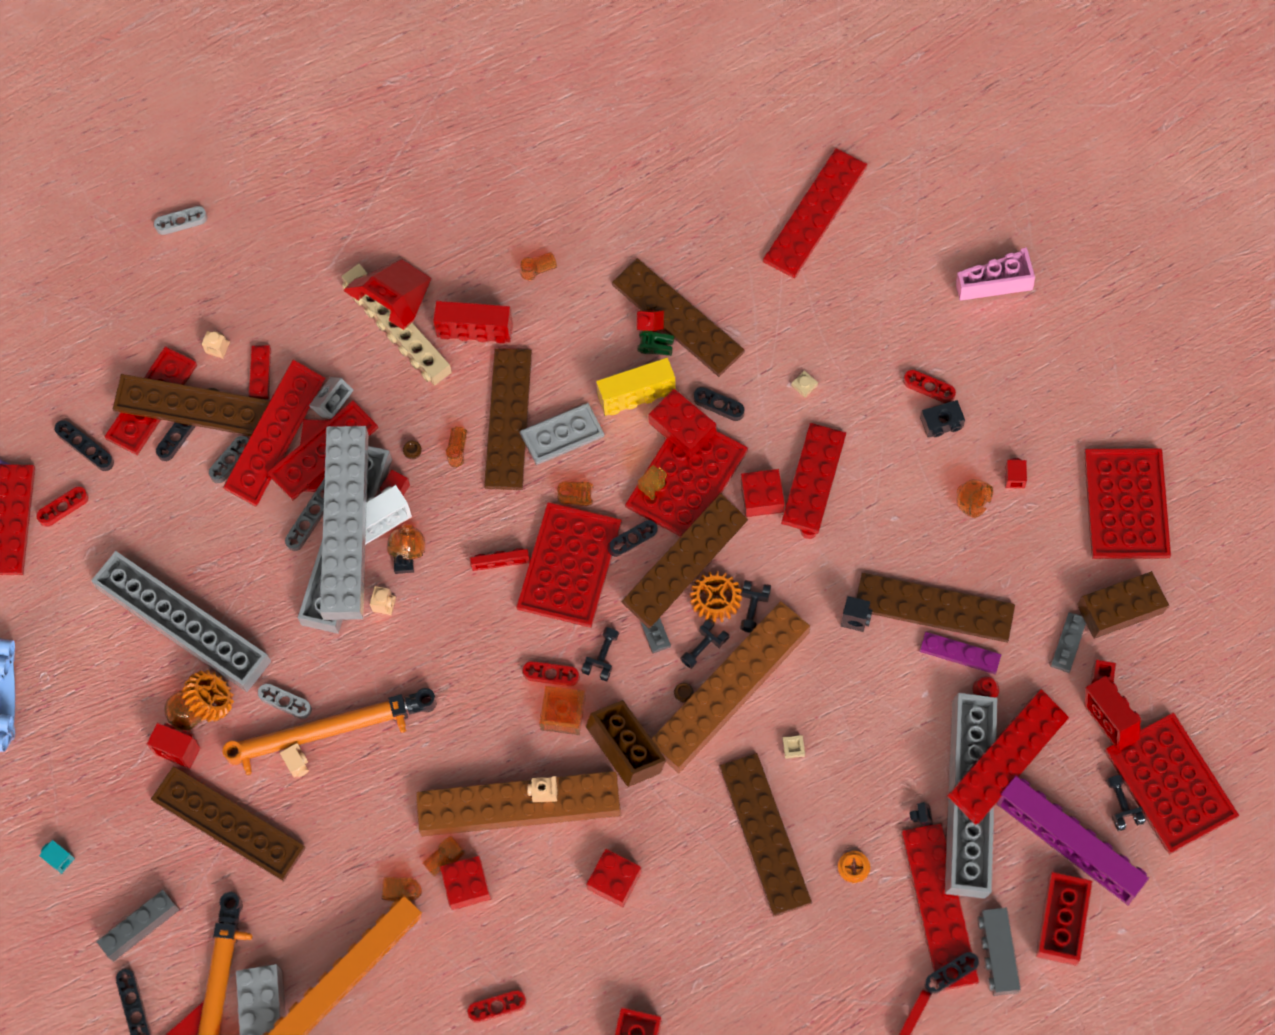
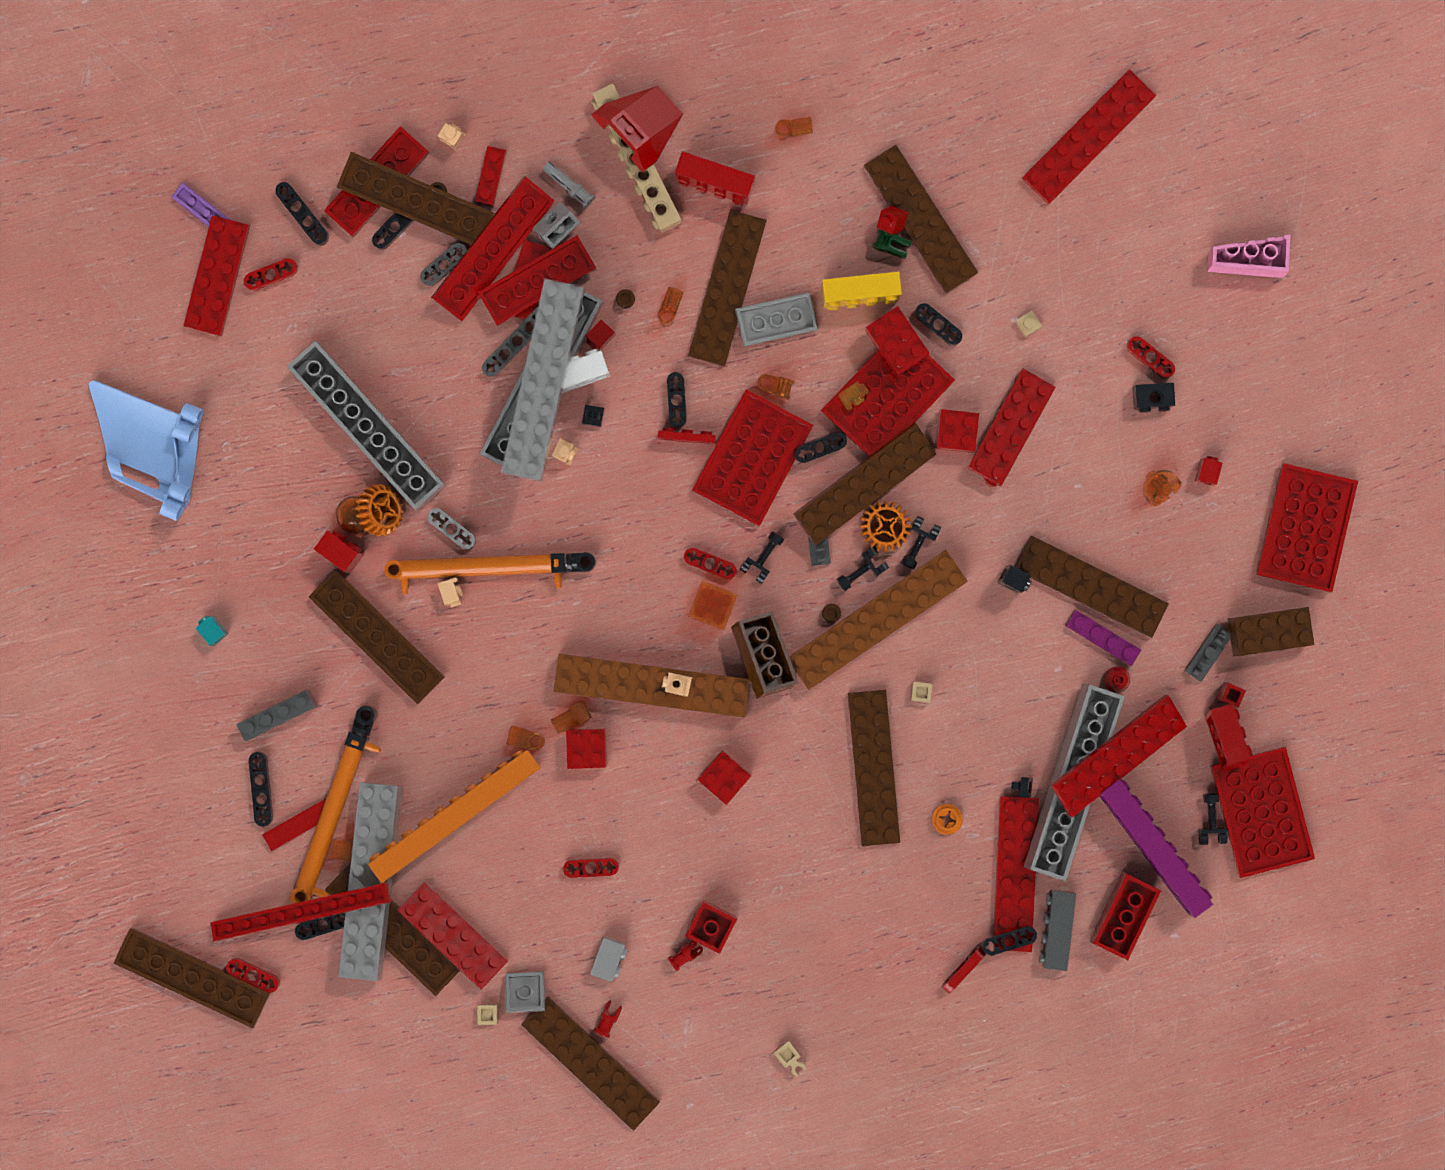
camera: 10 degrees right, 20 degrees up
(343, 364) = (575, 189): none -> light grey pin
(406, 542) = (599, 400): clear orange cylinder -> none
(483, 514) = (683, 405): none -> black beam

